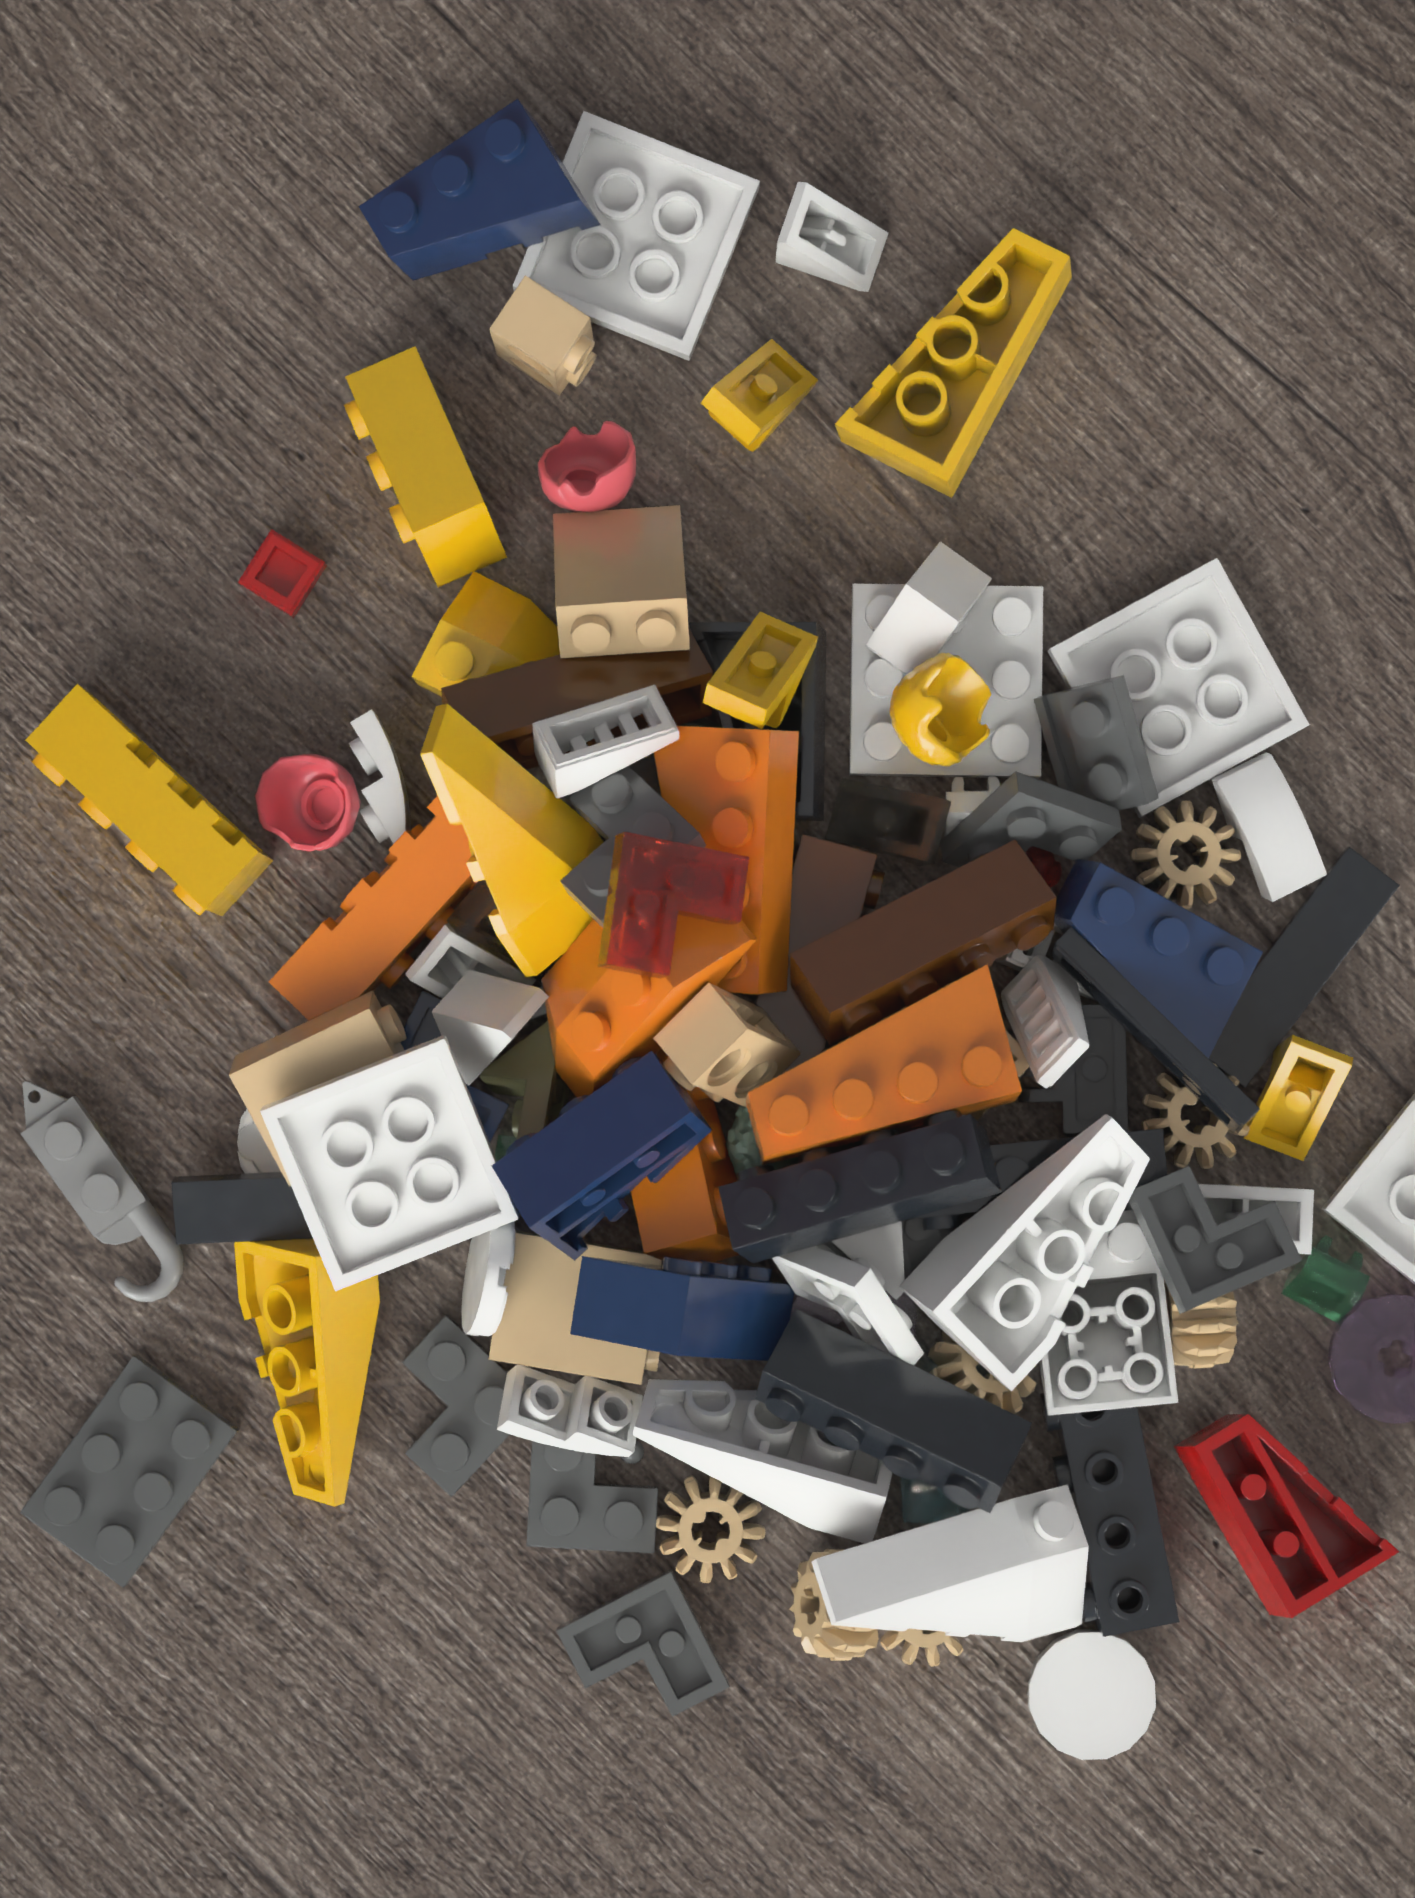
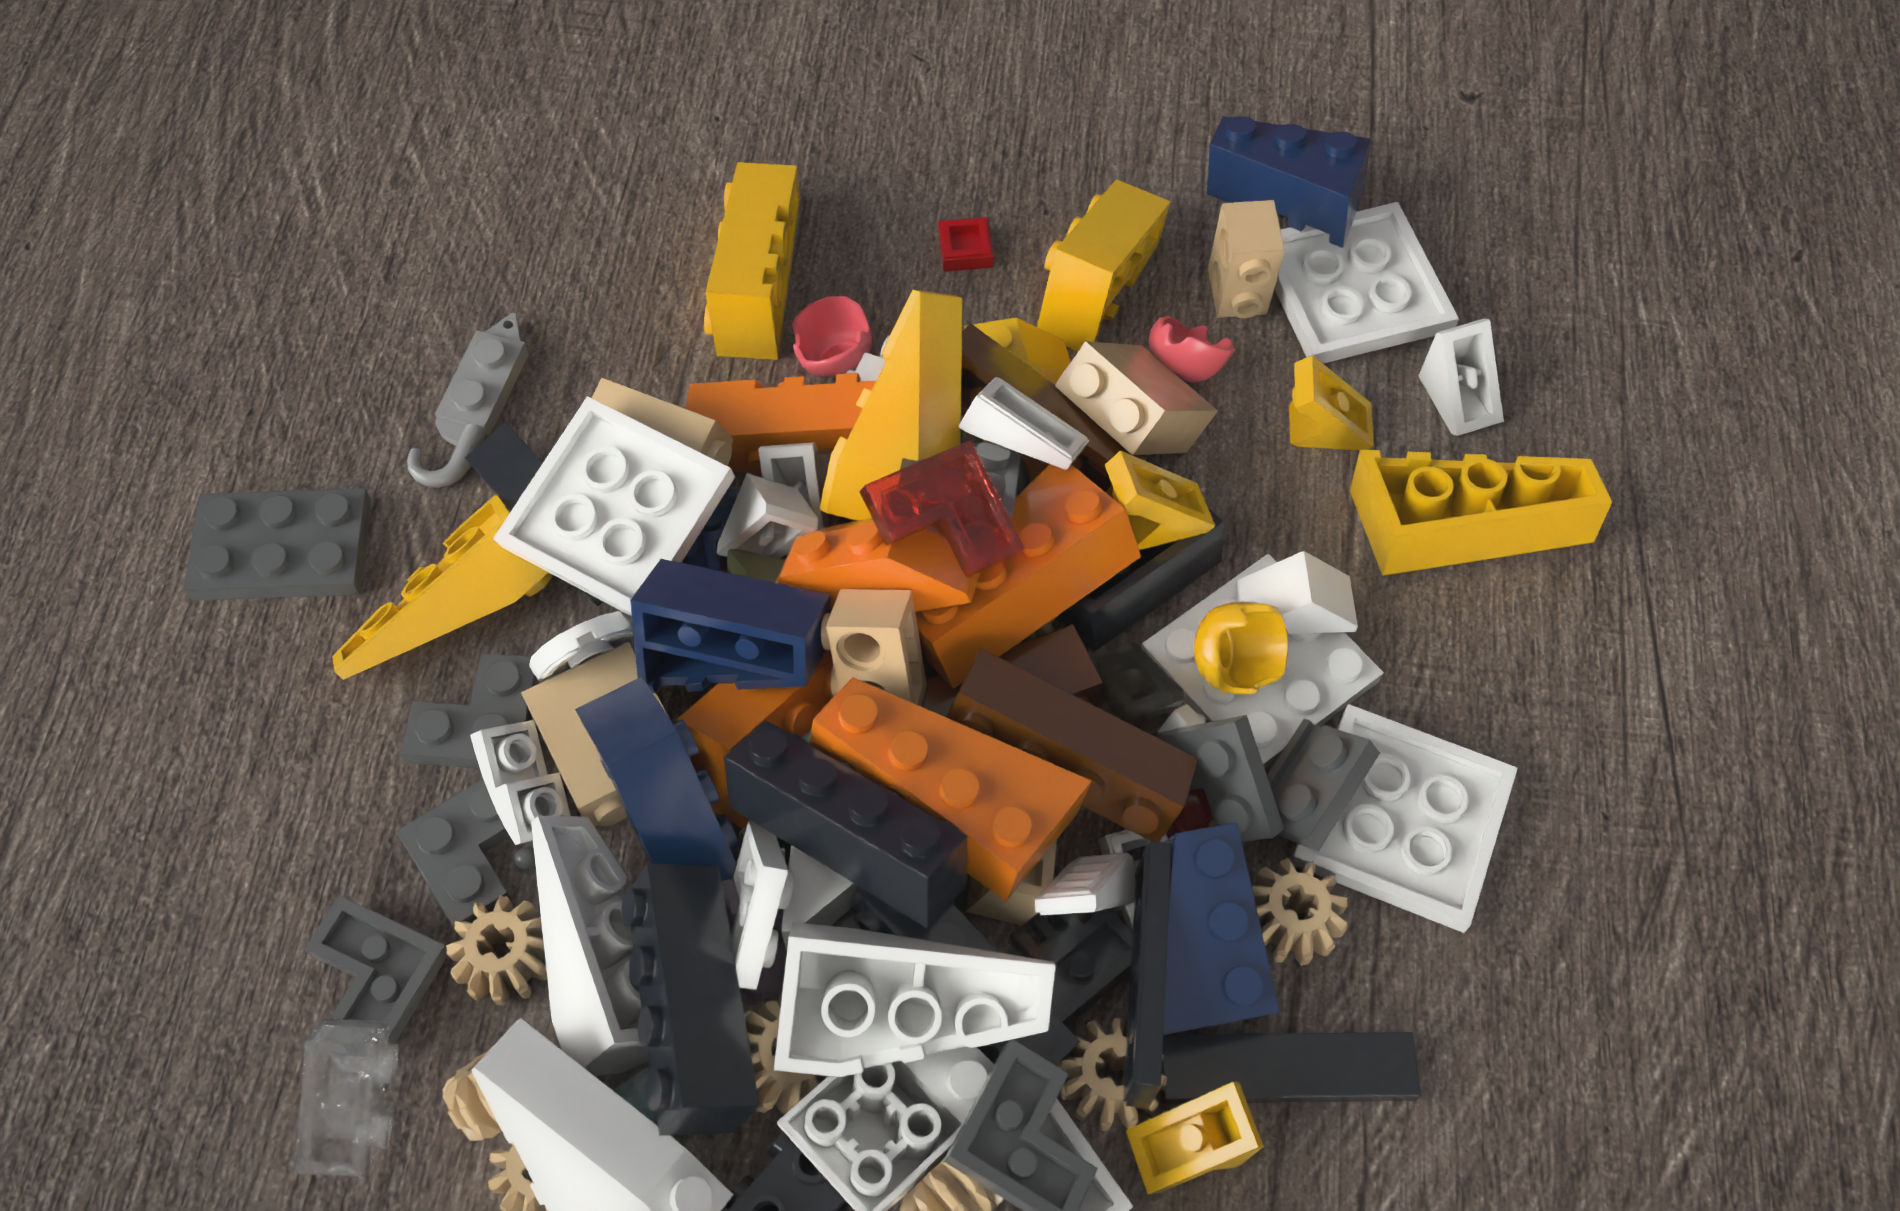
camera: 50 degrees right, 25 degrees down
(755, 1733) = (344, 1096): none -> clear brick
(1270, 826) = (1371, 959): white slope -> none

